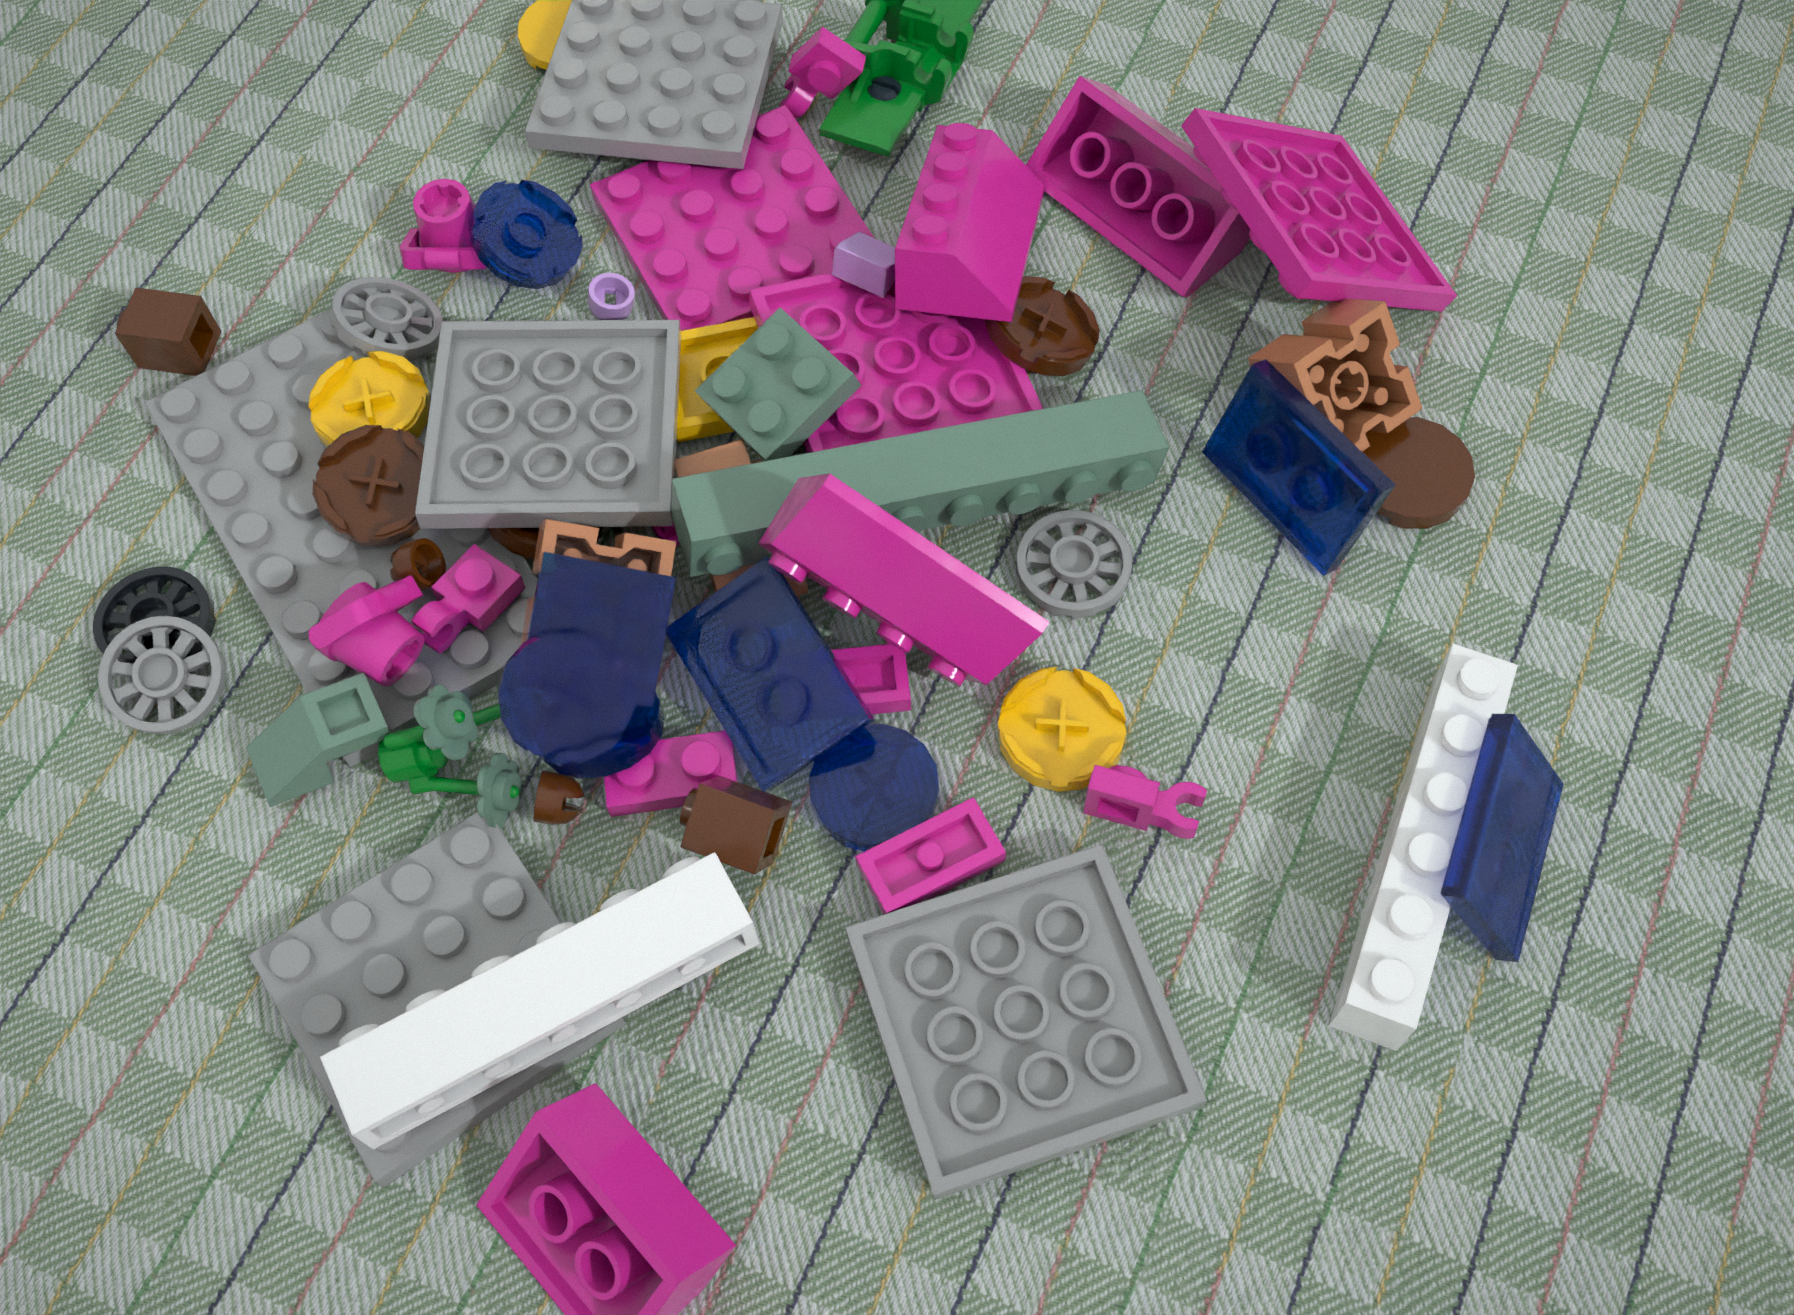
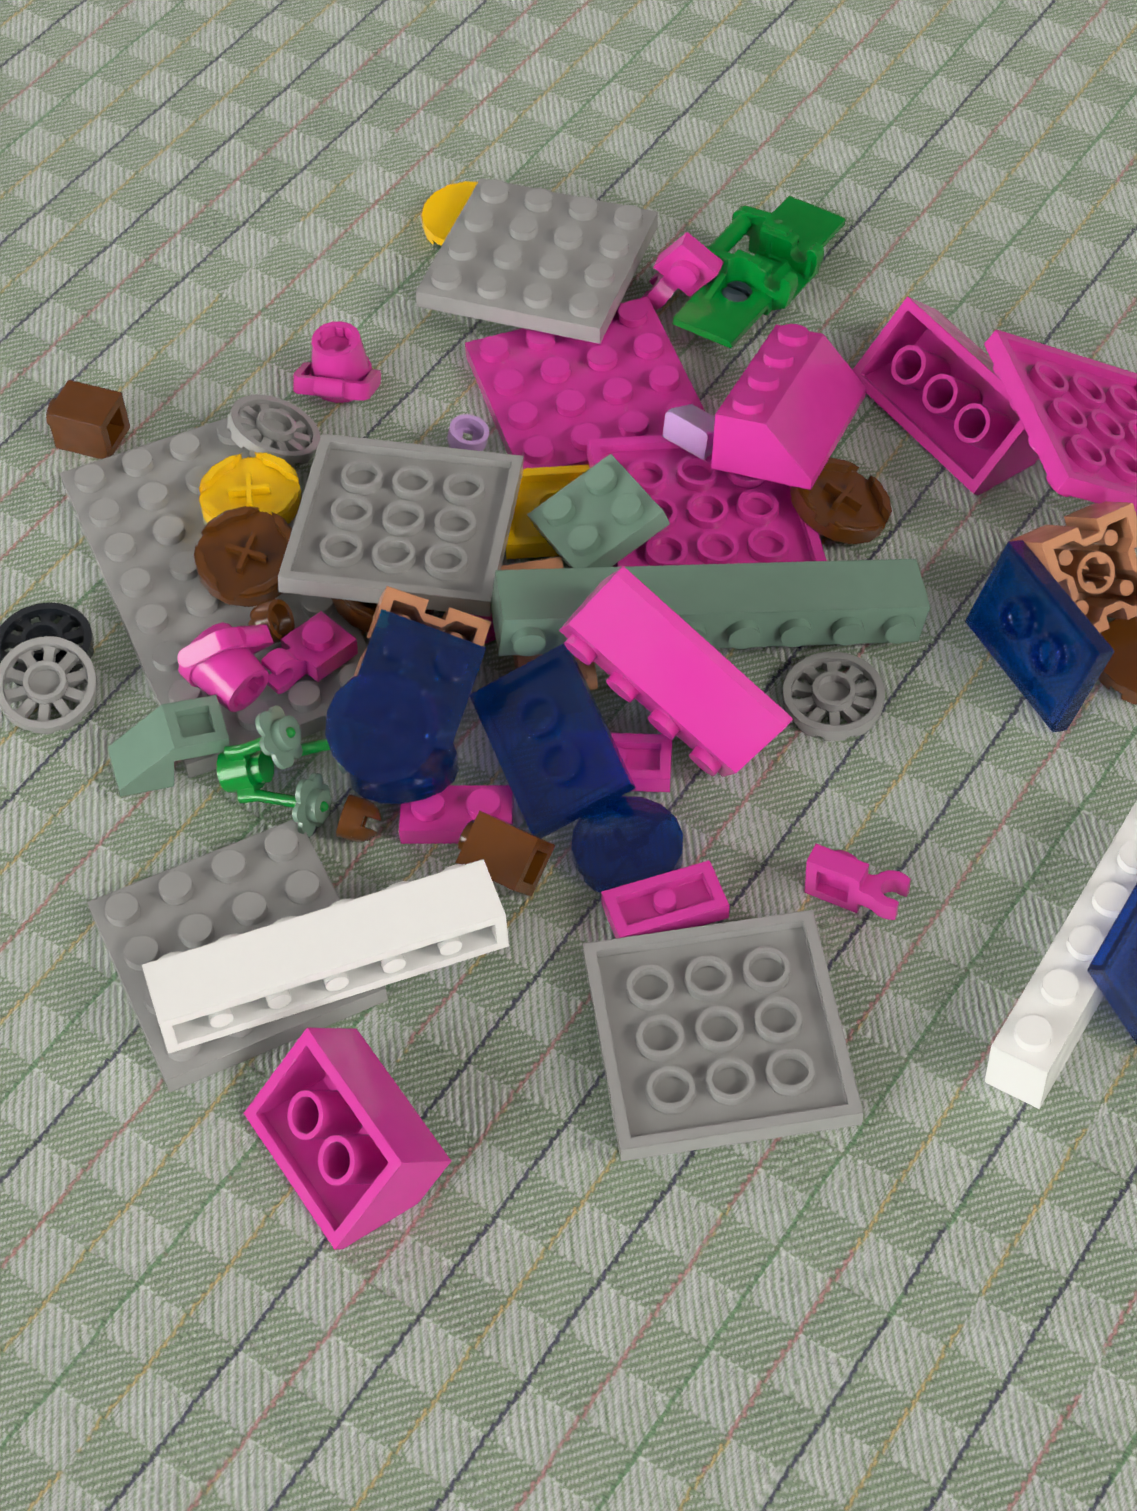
camera: 10 degrees right, 10 degrees down
(525, 234) = (402, 375): clear blue tile -> none
(1061, 727) = (793, 814): yellow tile -> none

